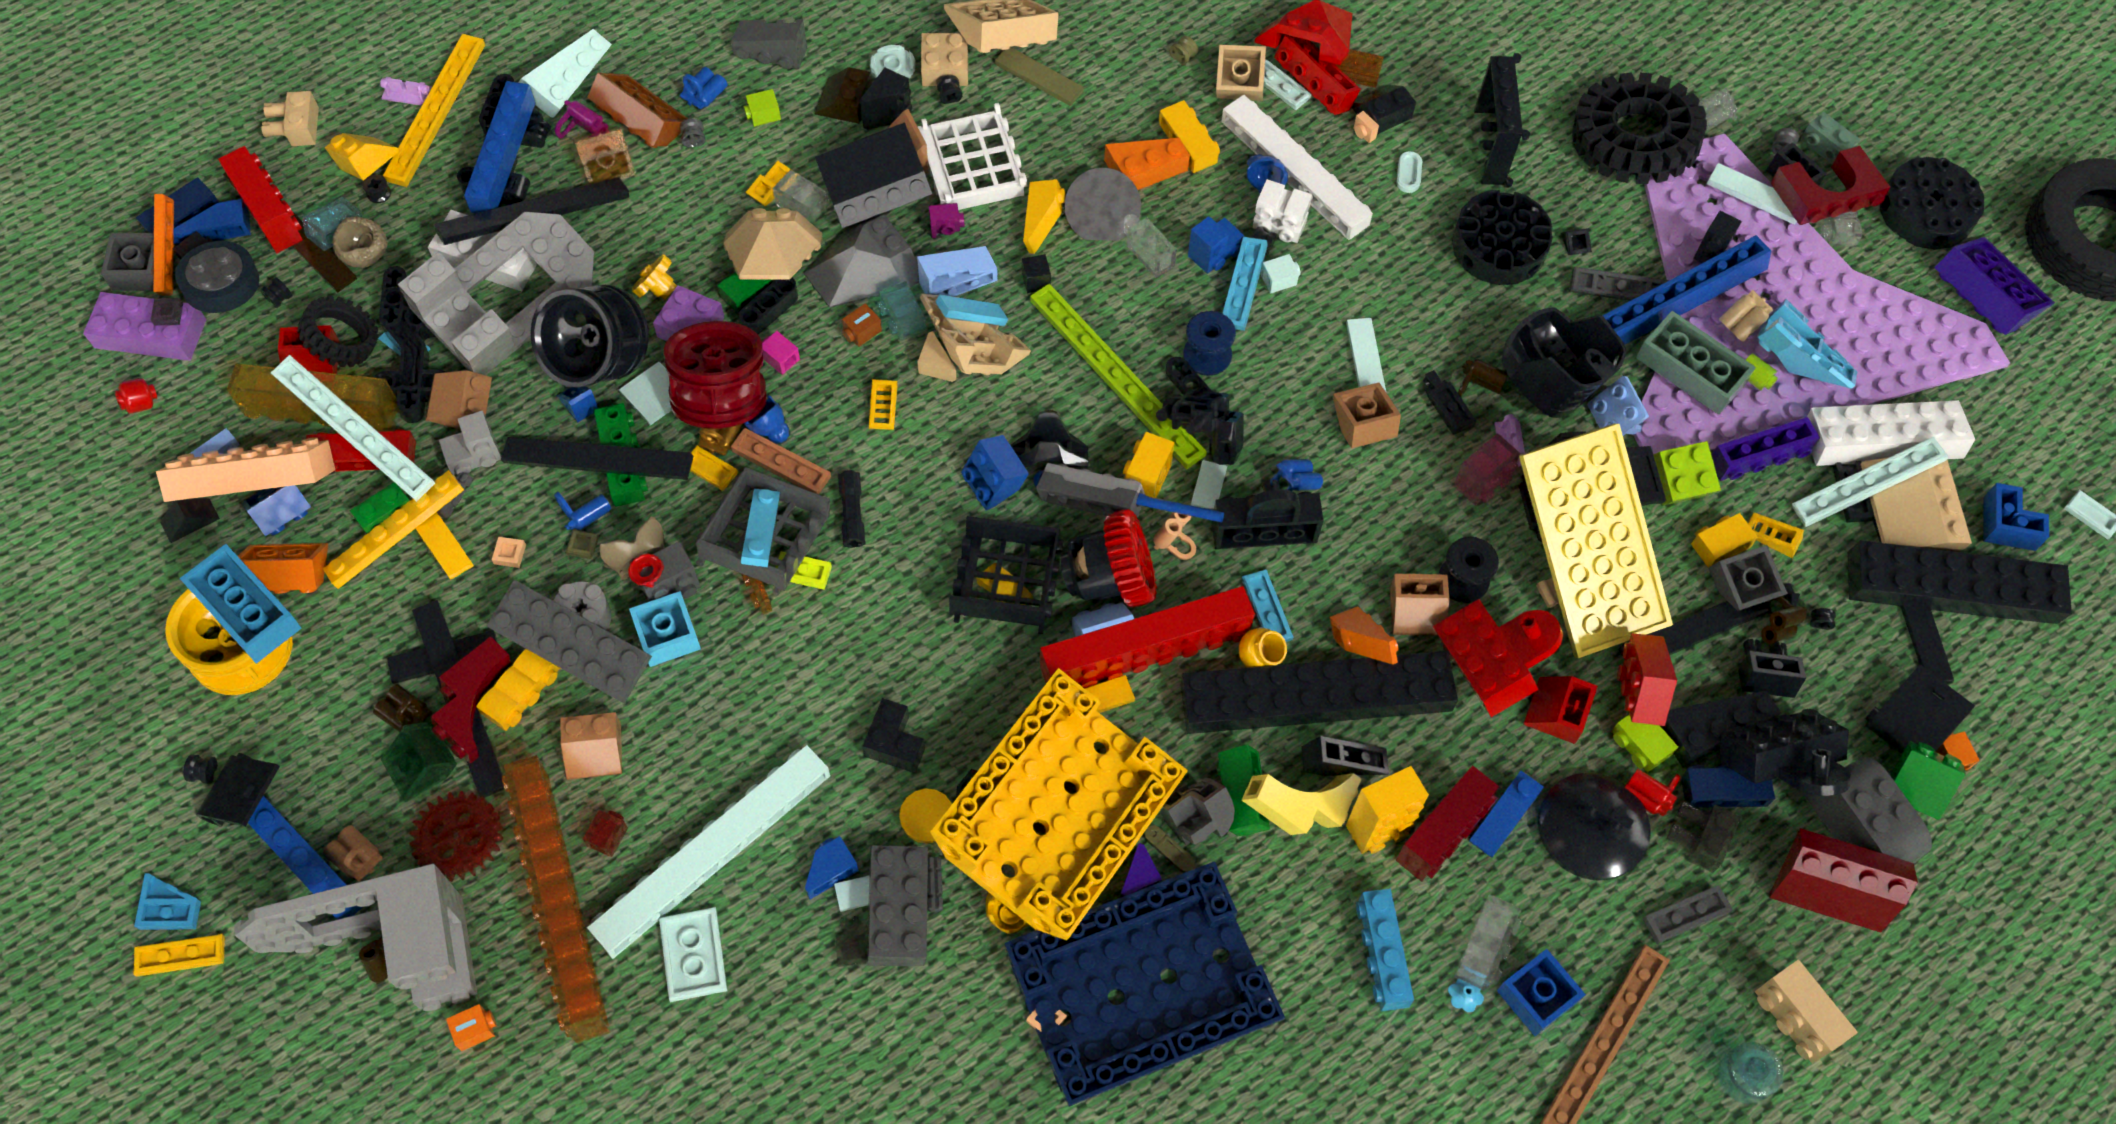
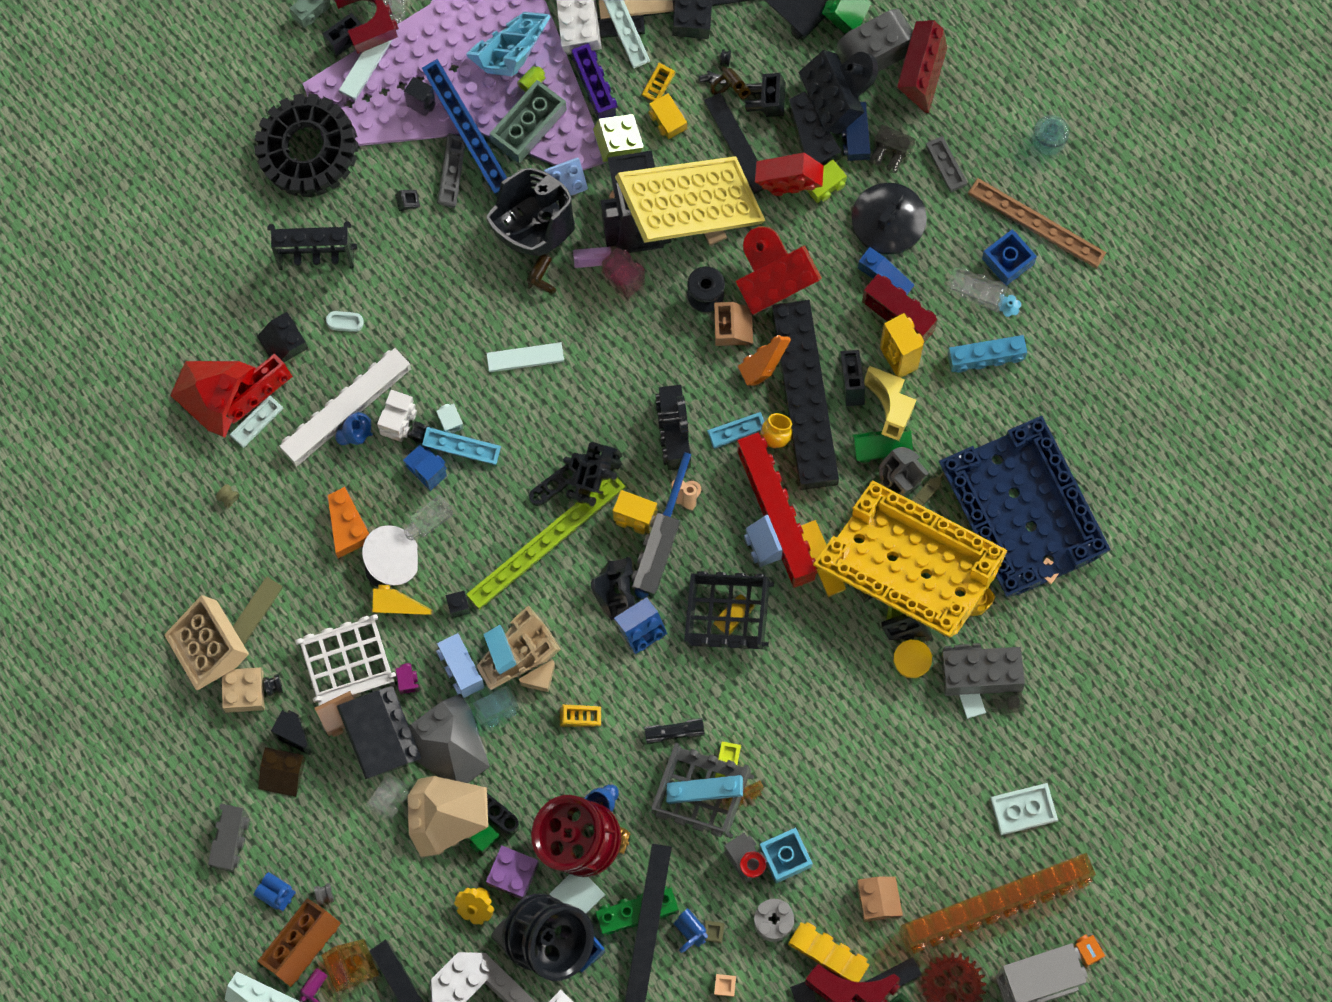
camera: 90 degrees left, 10 degrees up
(569, 641) = (805, 920): dark grey plate -> none
(605, 832) = (943, 878): clear red brick -> none
(621, 553) = (729, 880): dark tan brick -> none
(708, 851) = (951, 803): light aqua brick -> none
(712, 468) = (642, 843): yellow tile -> none
(762, 108) = (296, 838): lime brick -> none
(762, 187) = (371, 824): yellow slope -> none
(780, 352) = (537, 798): dark pink brick -> none
(780, 461) = (636, 787): nougat plate -> none
(829, 866) = (956, 720): blue slope -> none
(861, 325) = (511, 737): dark orange brick -> none
(887, 740) = (859, 689): black brick -> none
(903, 61) = (243, 736): light aqua tile -> none
(1111, 562) = (720, 535): piece -> none
(1141, 872) = (950, 511): dark purple slope -> none
(1182, 123) = (316, 489): yellow brick -> none
(1208, 484) = (639, 471): light aqua tile -> none
(1209, 342) = (525, 460): dark blue hose -> none
(1241, 72) = (257, 448): tan brick -> none
(1298, 475) = (631, 407): blue piece -> none
(1362, 67) = (243, 351): clear orange plate -> none
(1365, 127) = (305, 353): light nougat plate -> none
(1366, 415) = (577, 357): medium nougat slope -> none
(1448, 403) = (561, 299): black hinge -> none
(1502, 237) = (429, 250): black brick -> none
(1561, 707) = (806, 230): red slope -> none
(1652, 793) = (865, 179): red piece -> none
(1719, 108) = (283, 86): clear piece -> none
(1746, 315) = (484, 82): tan piece -> none
(1748, 578) = (700, 103): dark grey slope -> none
(1783, 138) = (311, 39): dark grey wheel -> none
(1805, 1012) = (1010, 98): tan brick -> none

